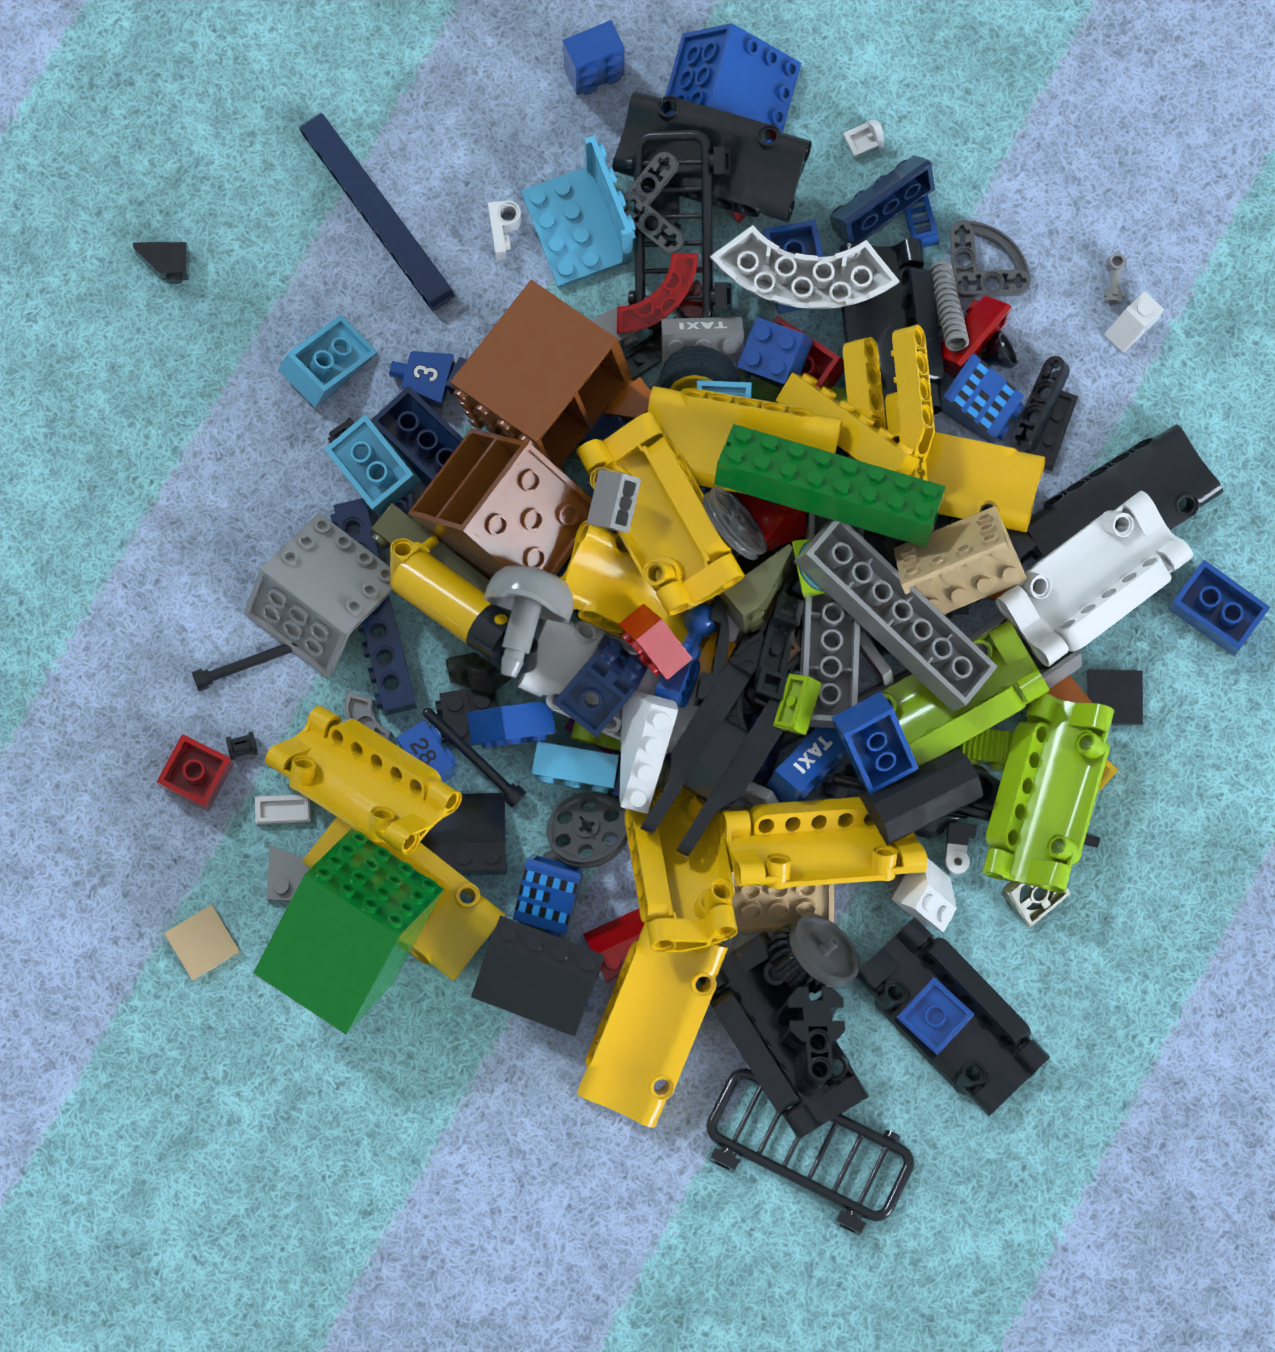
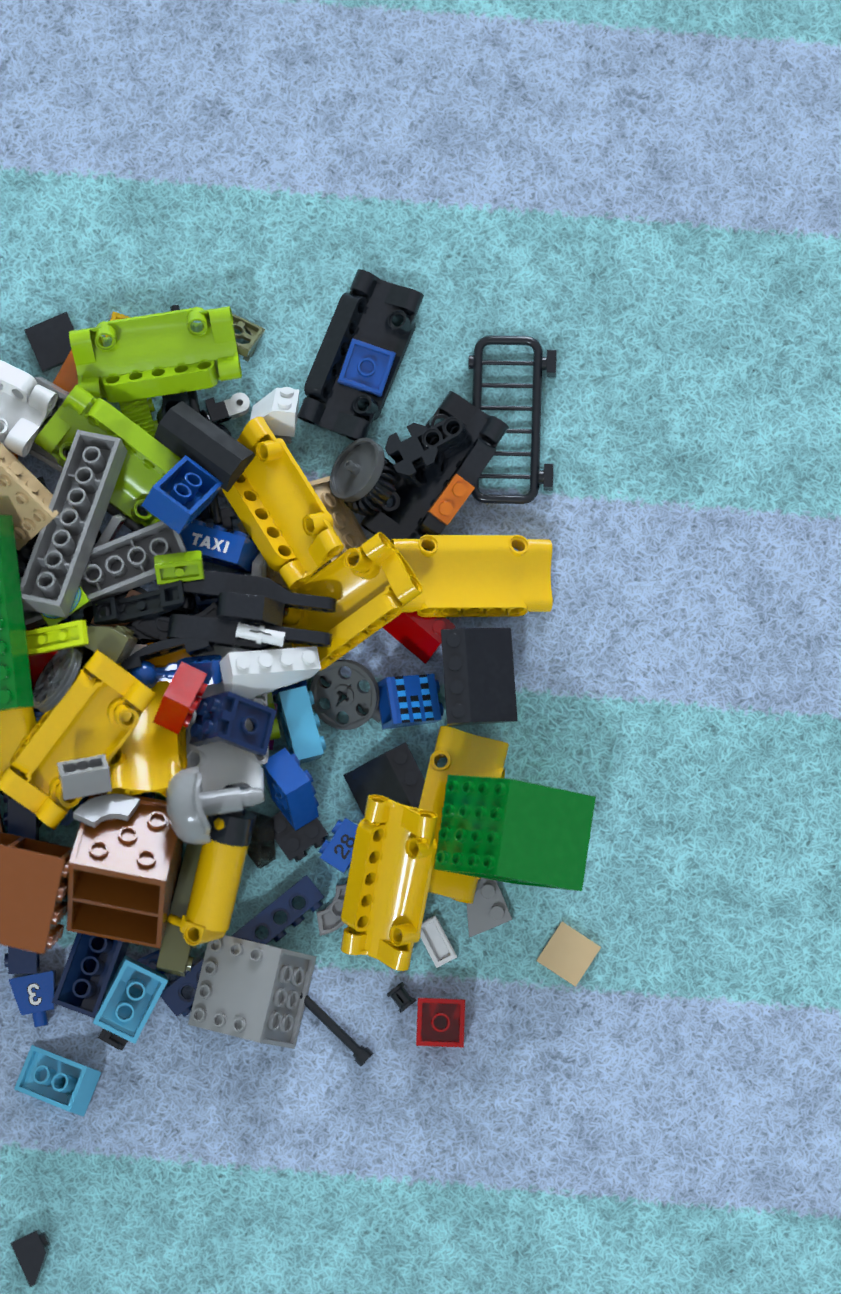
camera: 115 degrees left, 5 degrees up
(511, 792) = (341, 768): black piece -> none
(572, 511) = (105, 808): none -> light grey tile
(695, 741) = (260, 634): none -> white pin
(744, 1036) = (451, 499): none -> orange plate
(777, 540) = (57, 637): none -> neon yellow plate

